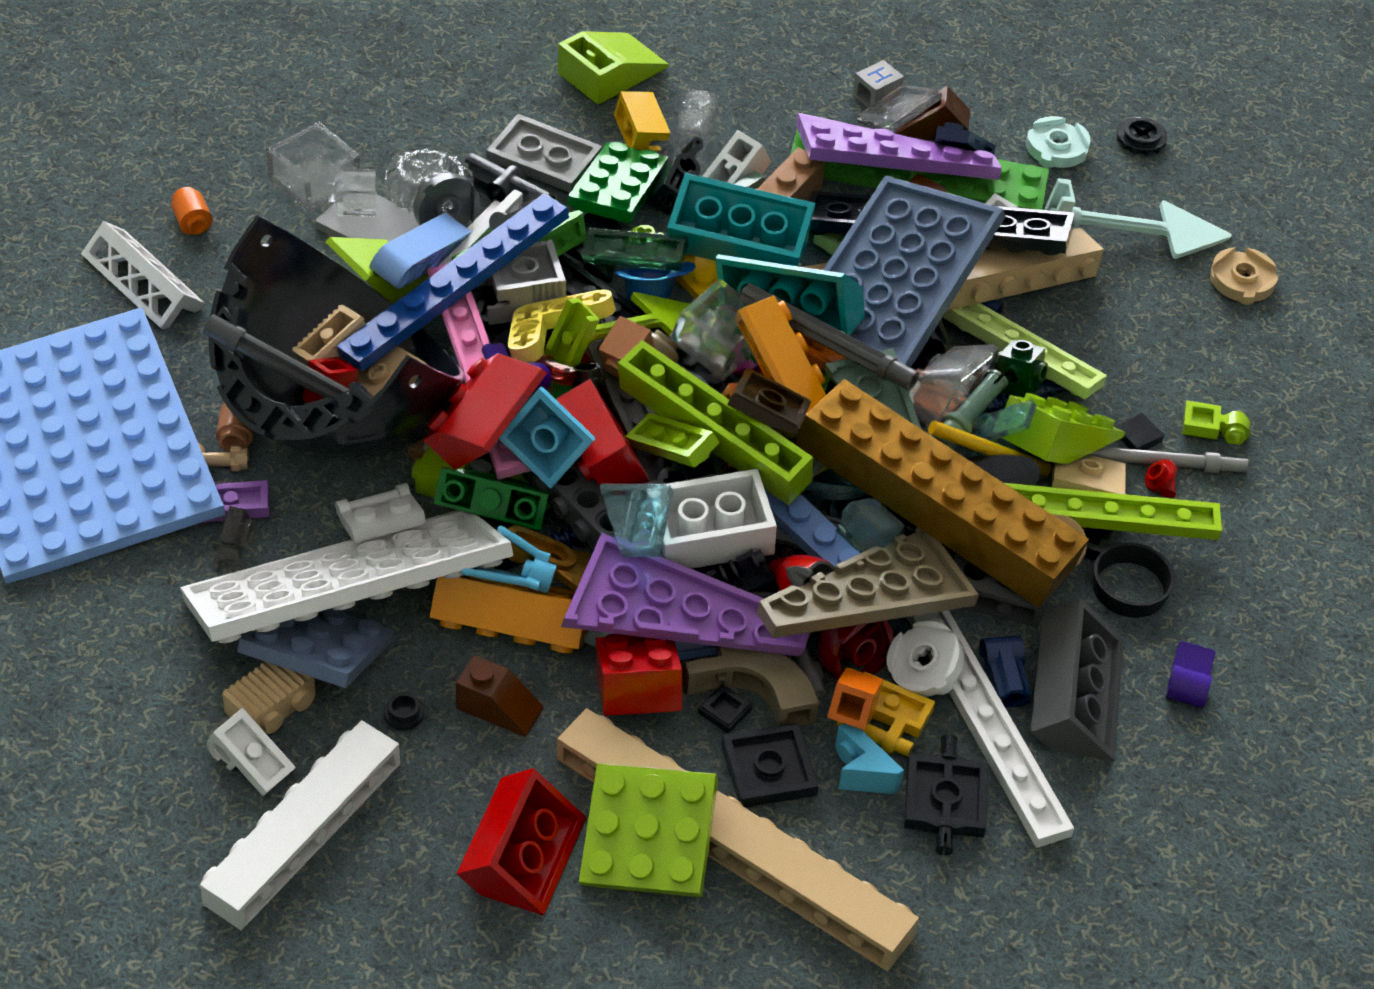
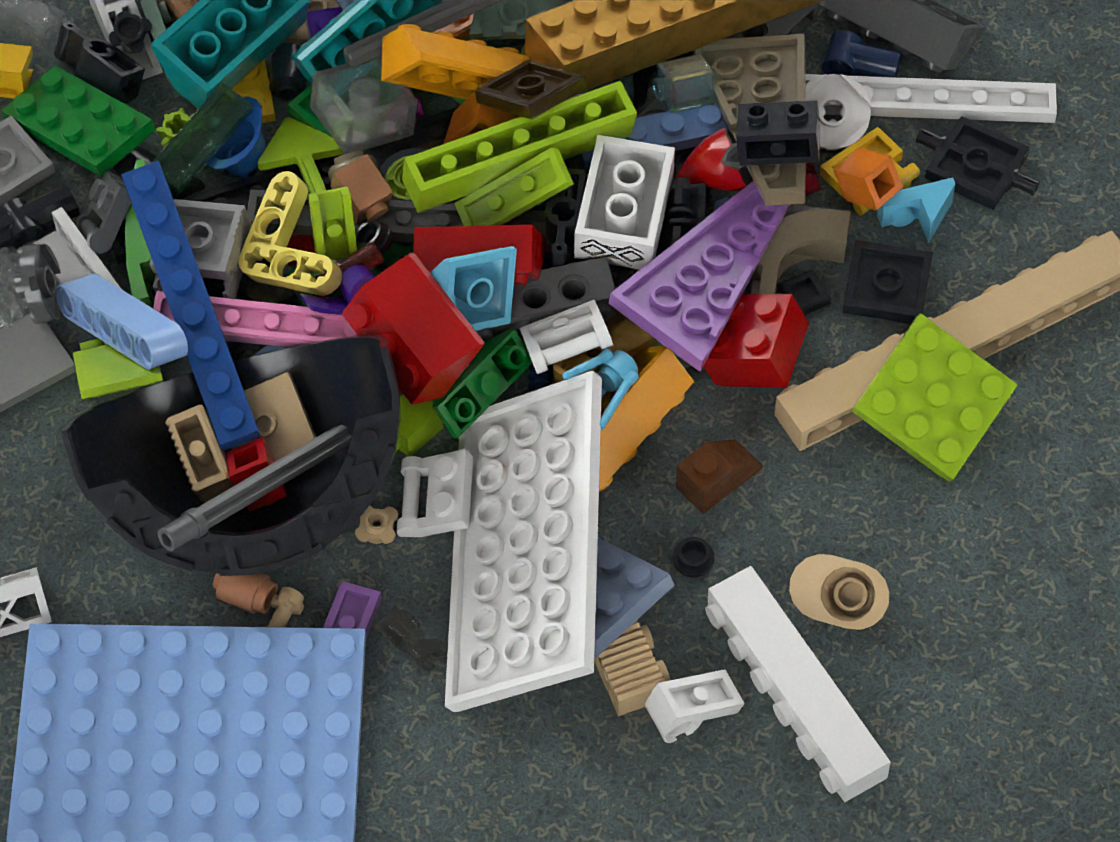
camera: 60 degrees left, 10 degrees up
(331, 494) = (380, 534): none -> tan plate
(405, 821) = (831, 584): none -> tan piece
(522, 842) = (892, 509): red slope -> none
(552, 526) = (565, 335): none -> white plate
(638, 516) = (614, 253): clear light blue wing -> none
(715, 170) = (128, 21): none -> black plate
(828, 587) = (778, 133): none -> black brick

